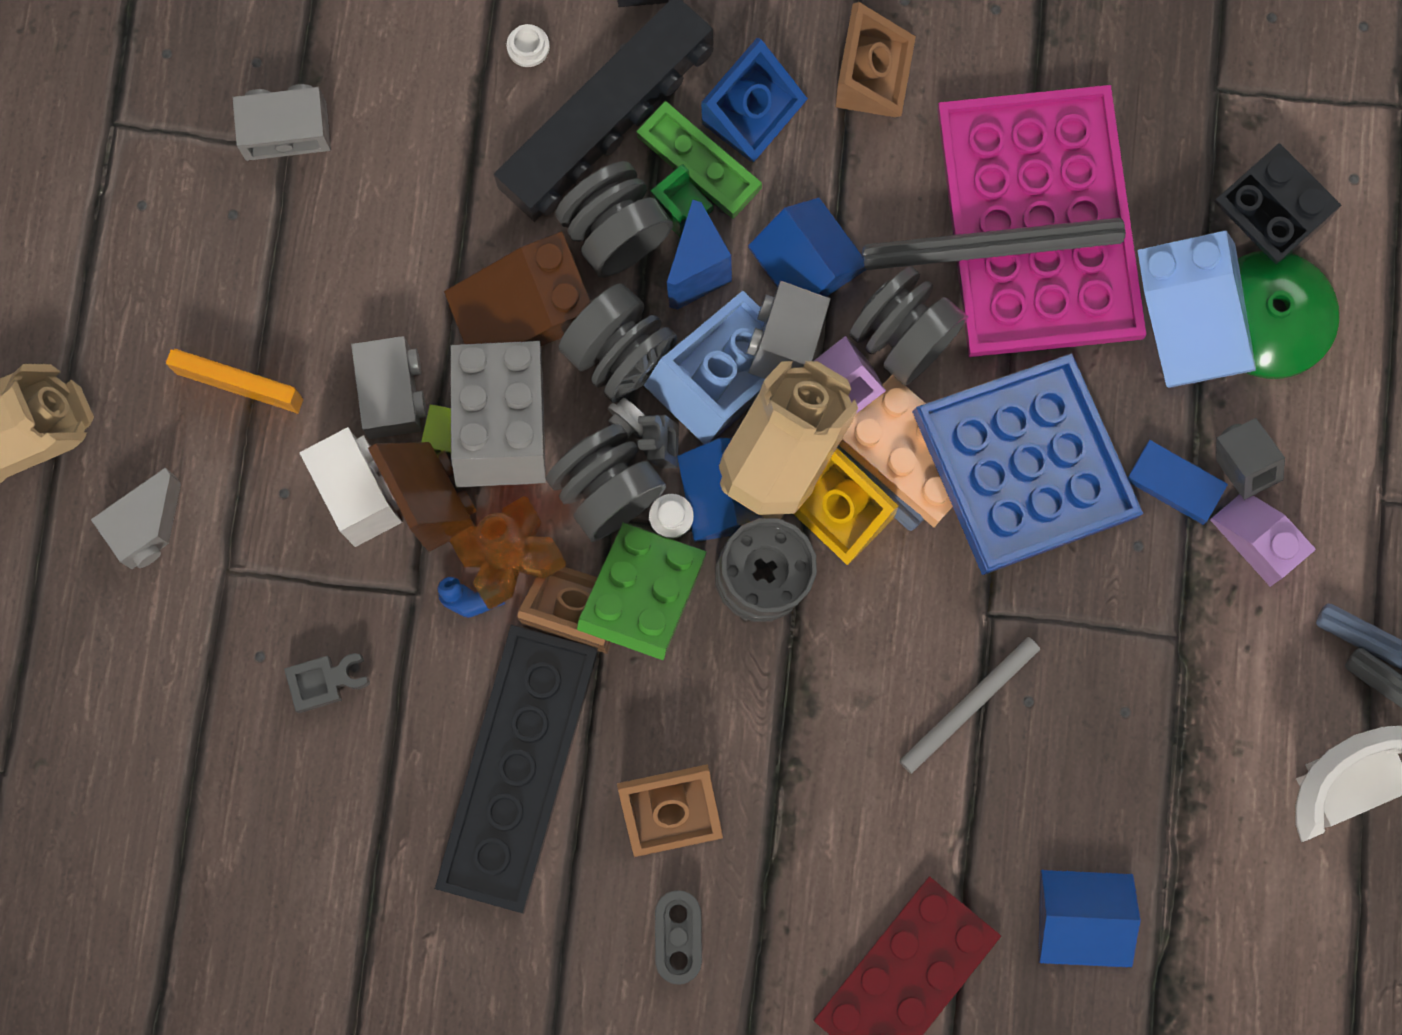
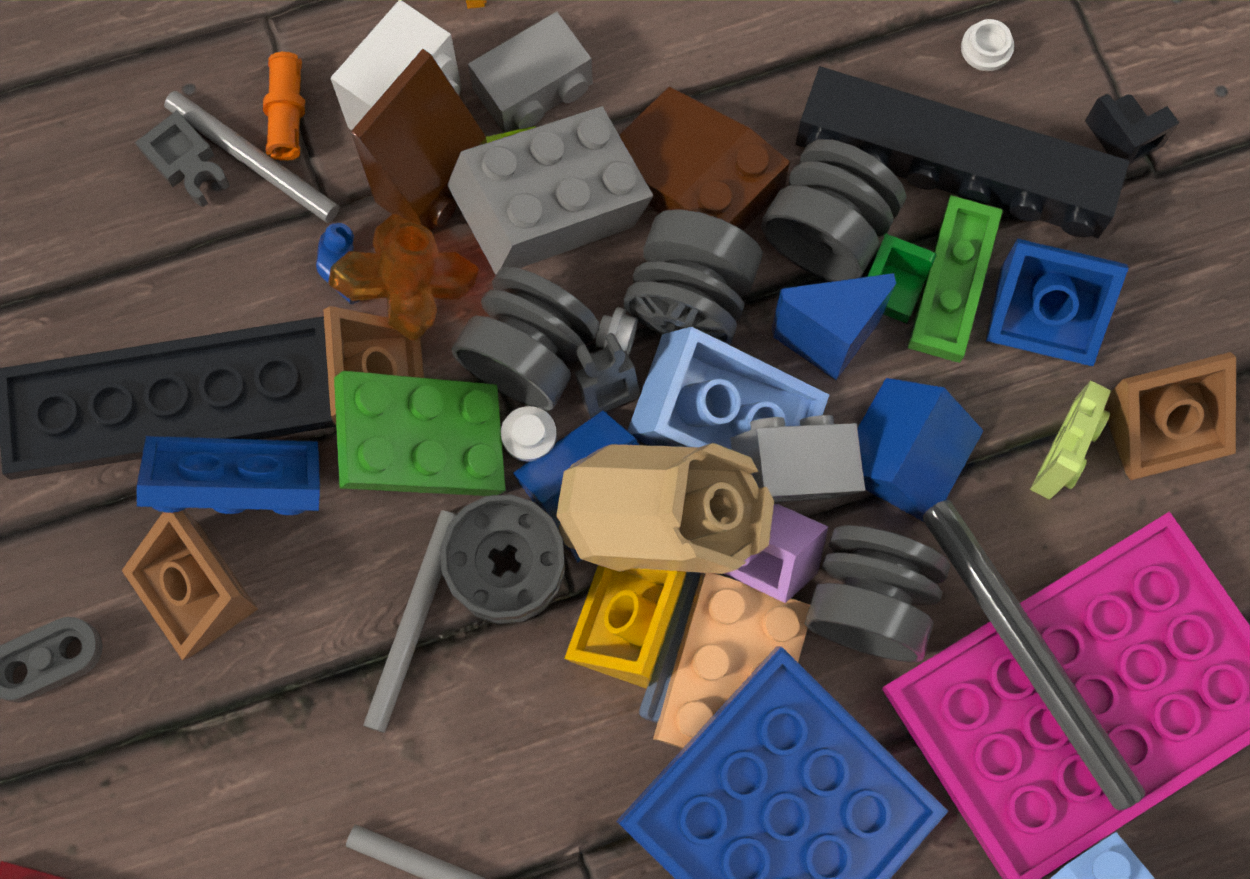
camera: 60 degrees right, 5 degrees down
(318, 586) = (284, 106): none -> orange pin
(345, 629) = (253, 157): none -> light grey bar
(610, 738) = (229, 475): none -> blue plate
(771, 659) = (409, 630): none -> light grey bar
(859, 140) = (1067, 454): none -> yellowish green wing

